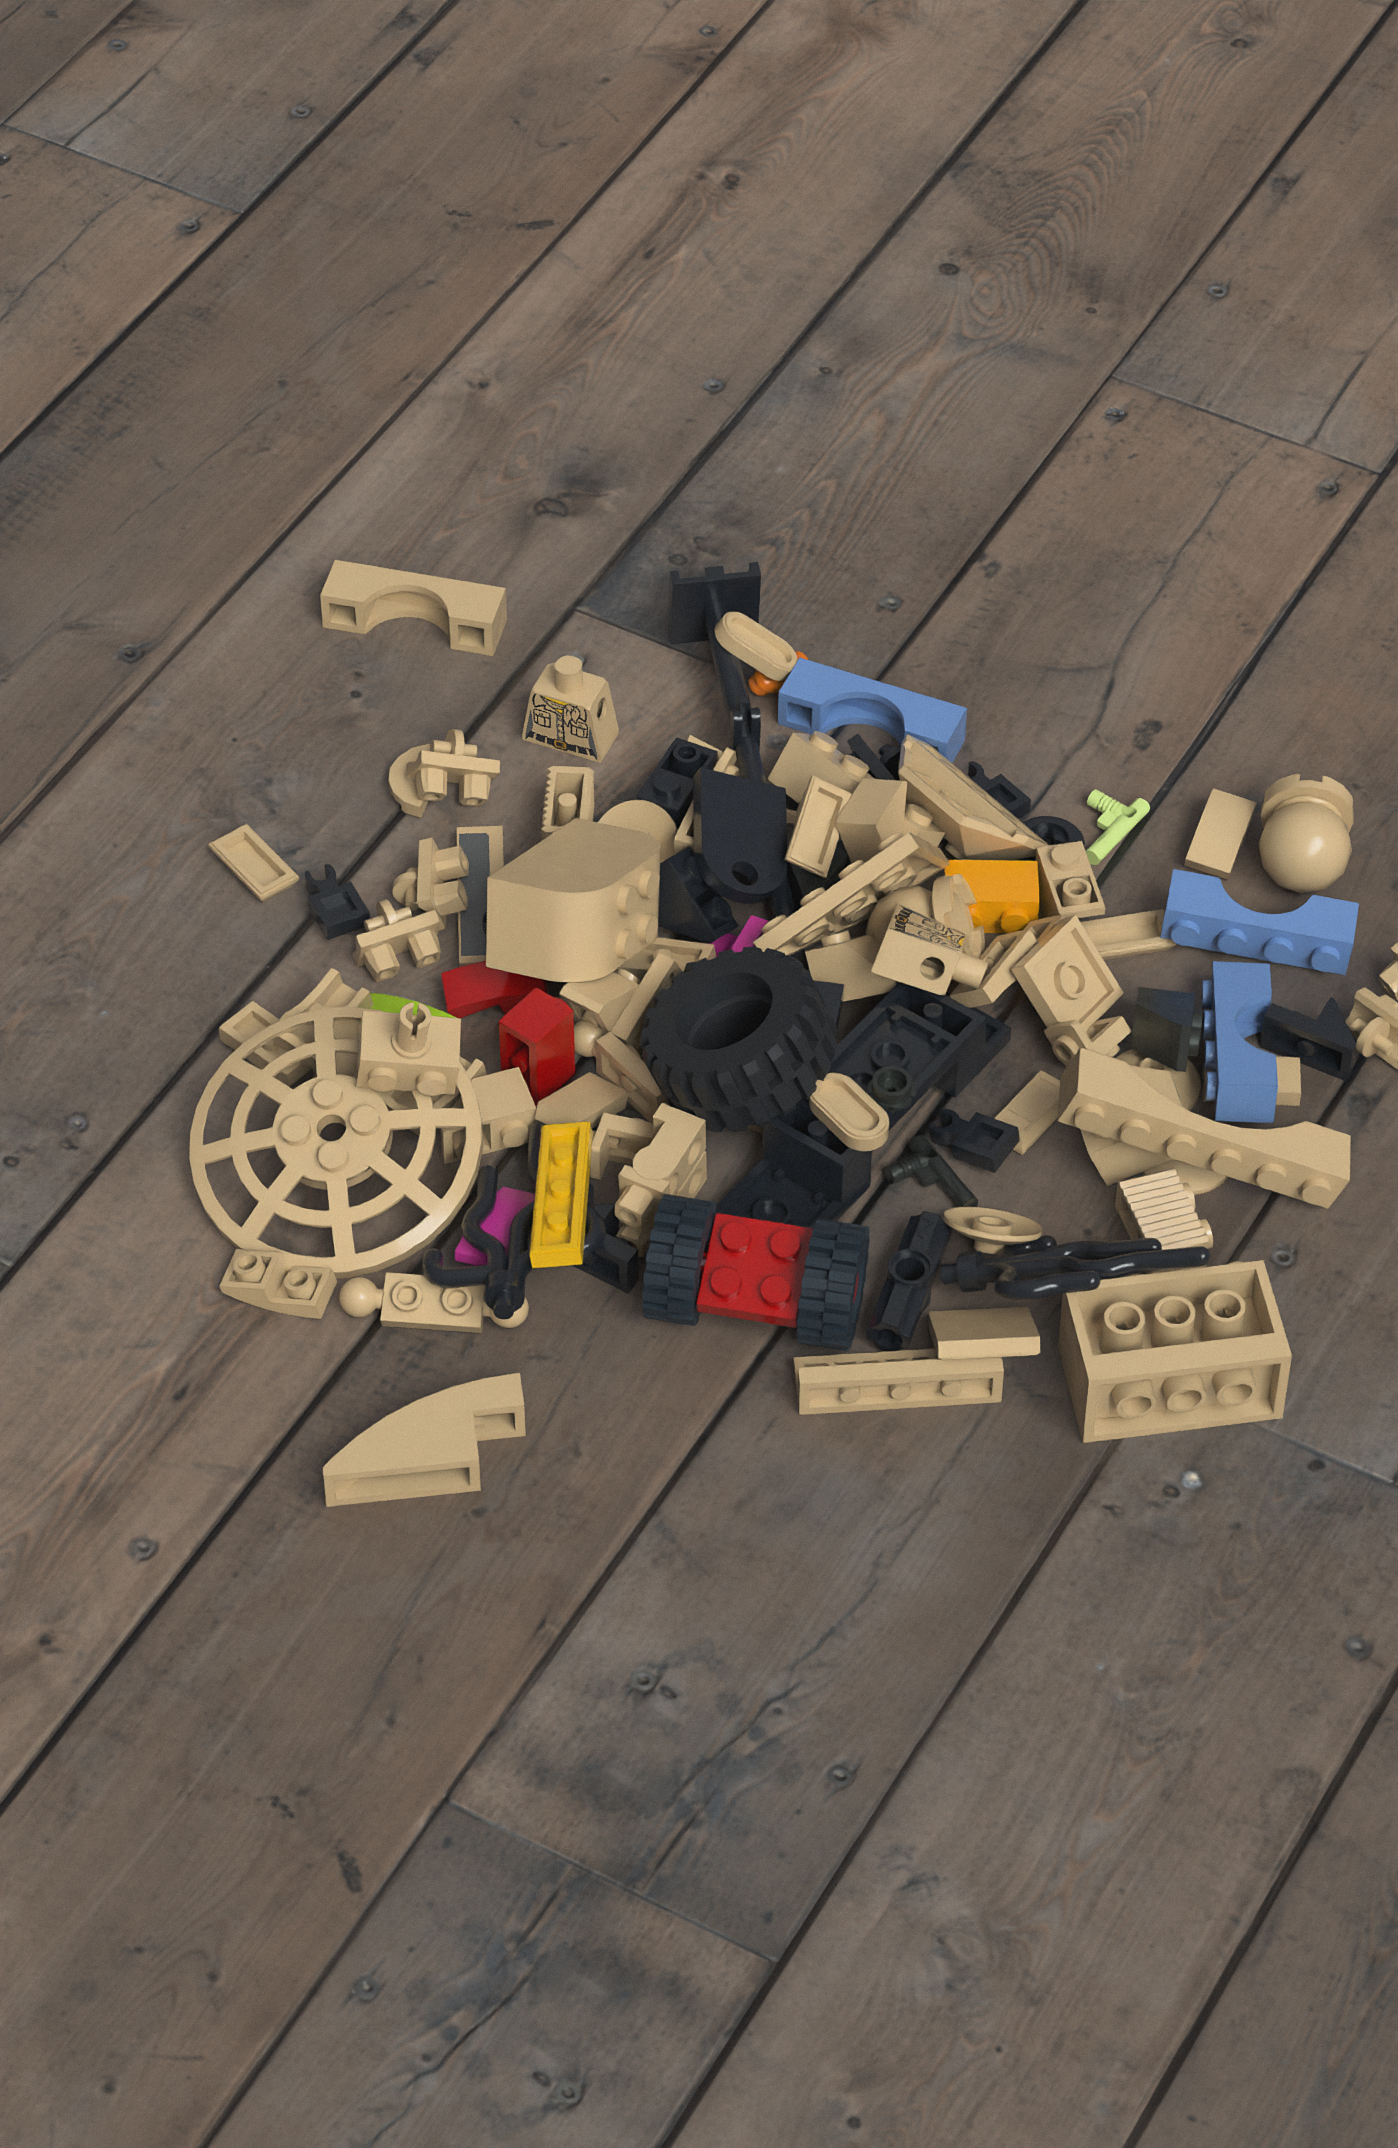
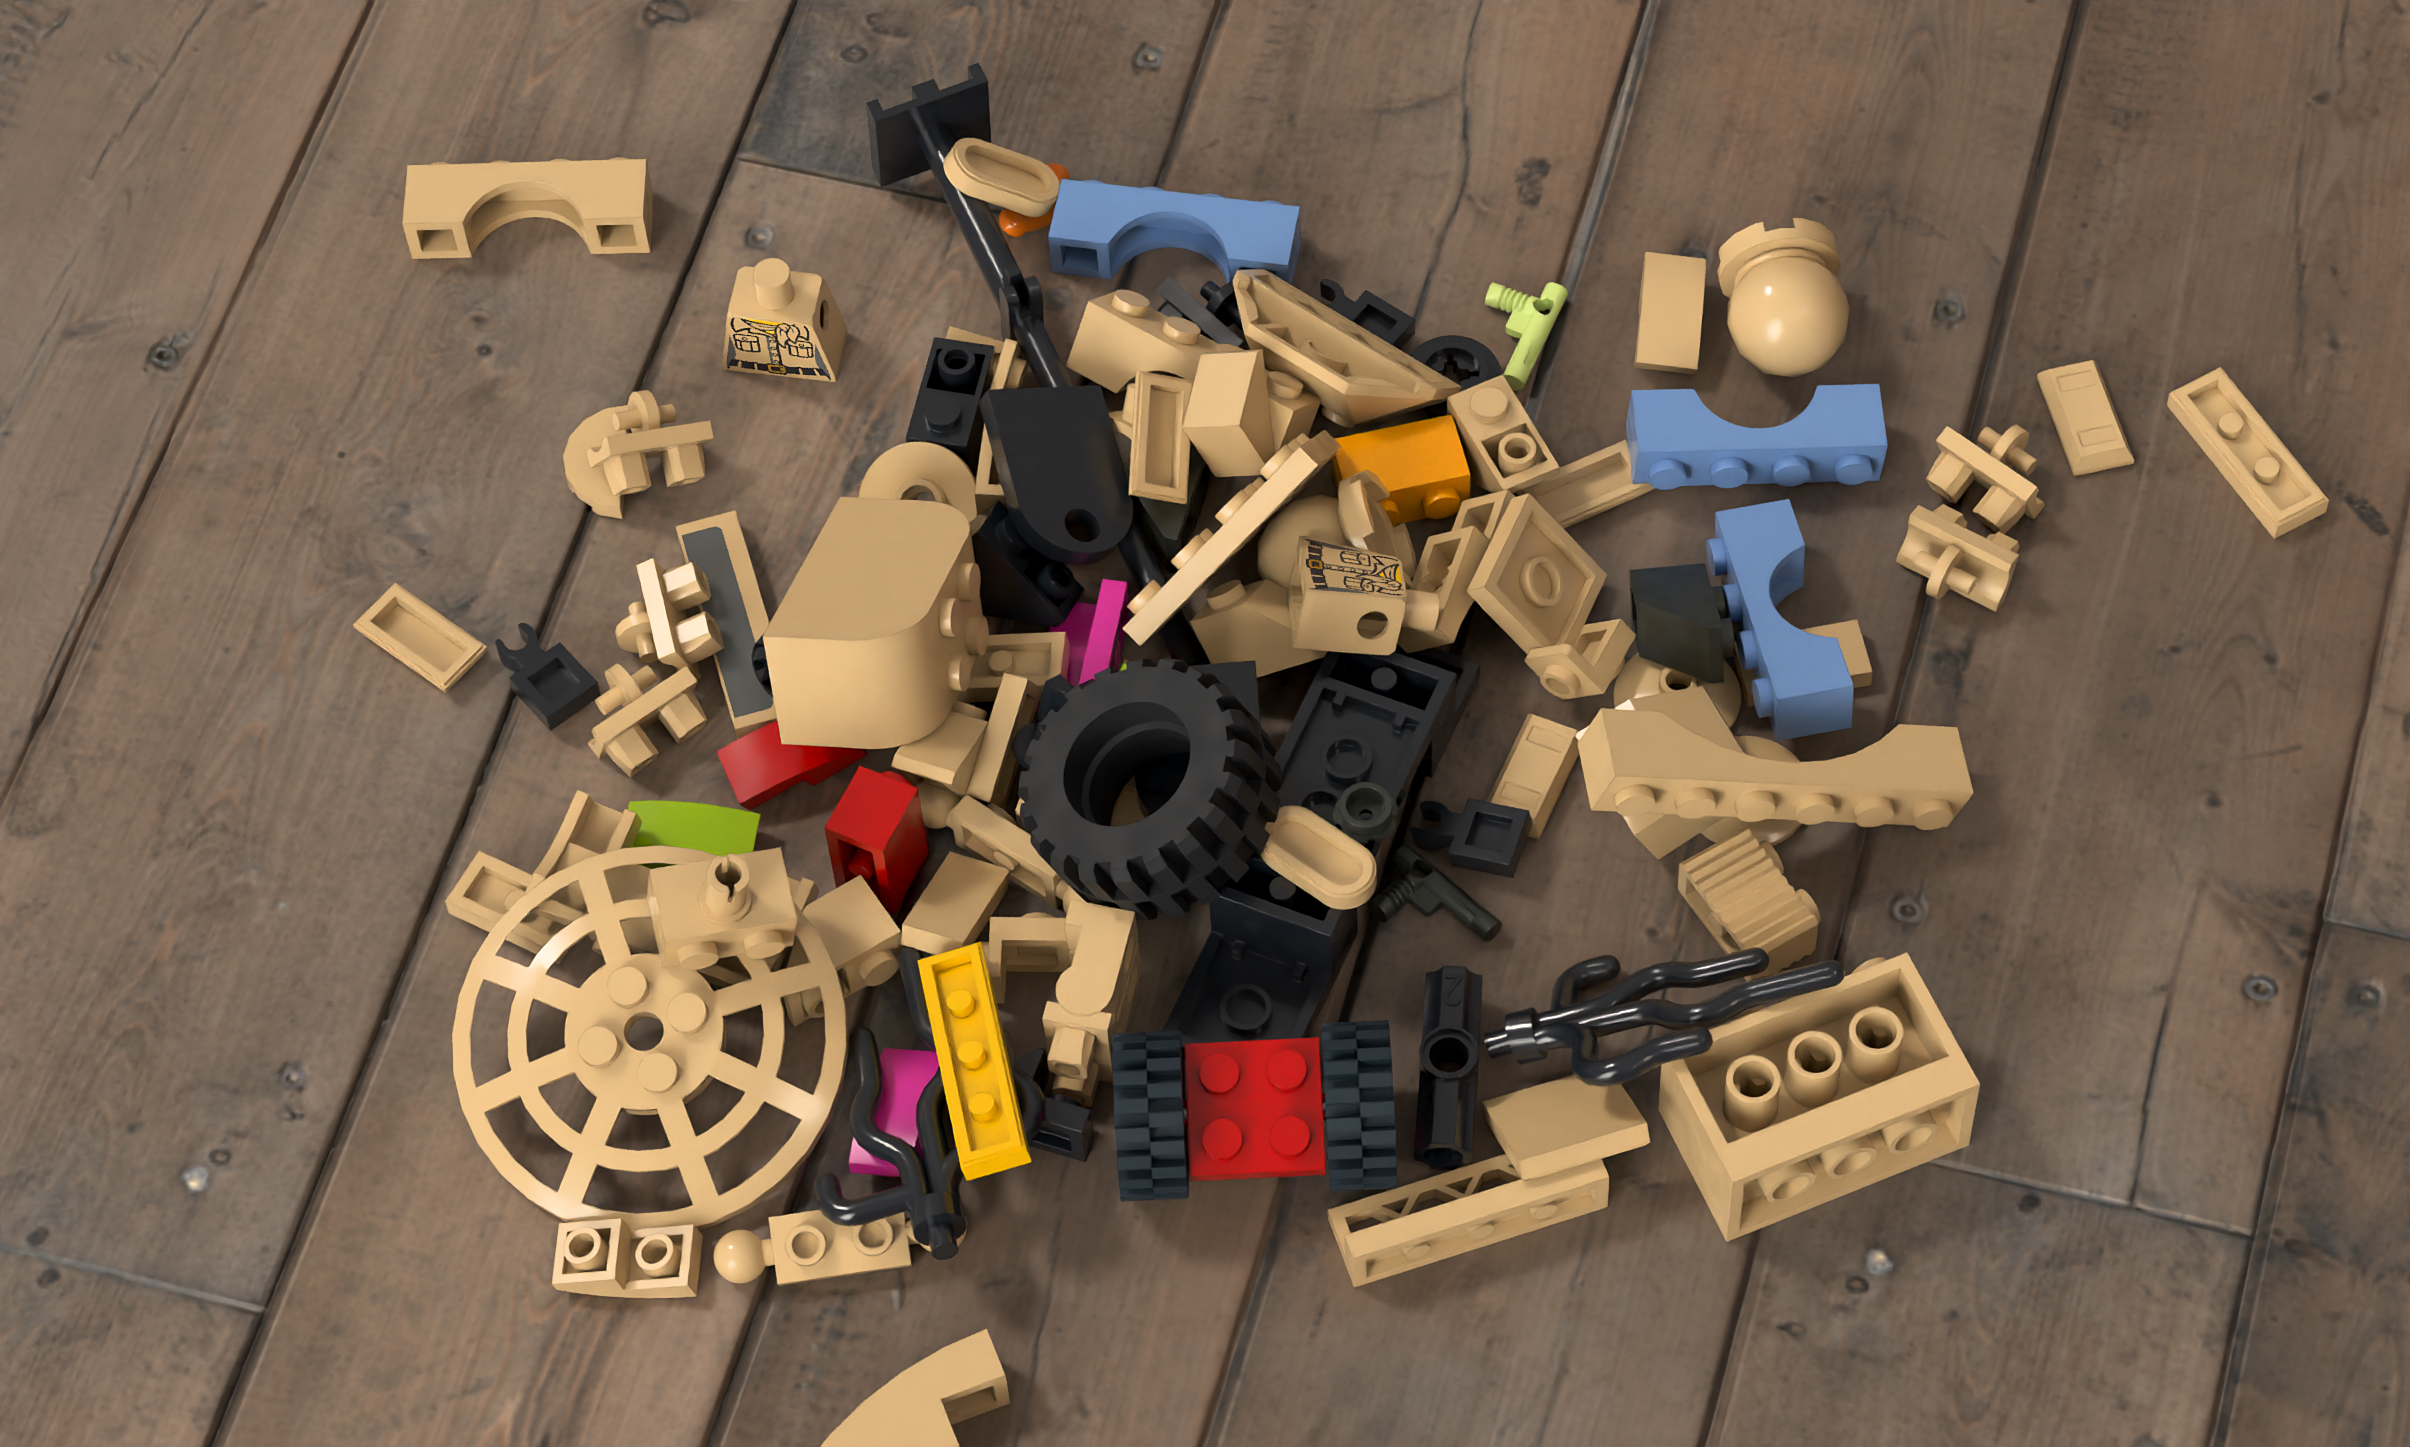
camera: 10 degrees left, 10 degrees up
(567, 797) = (816, 470): tan brick -> none
(992, 1227) = (1533, 960): tan dish -> none
(1319, 1043) = (1882, 596): black slope -> none

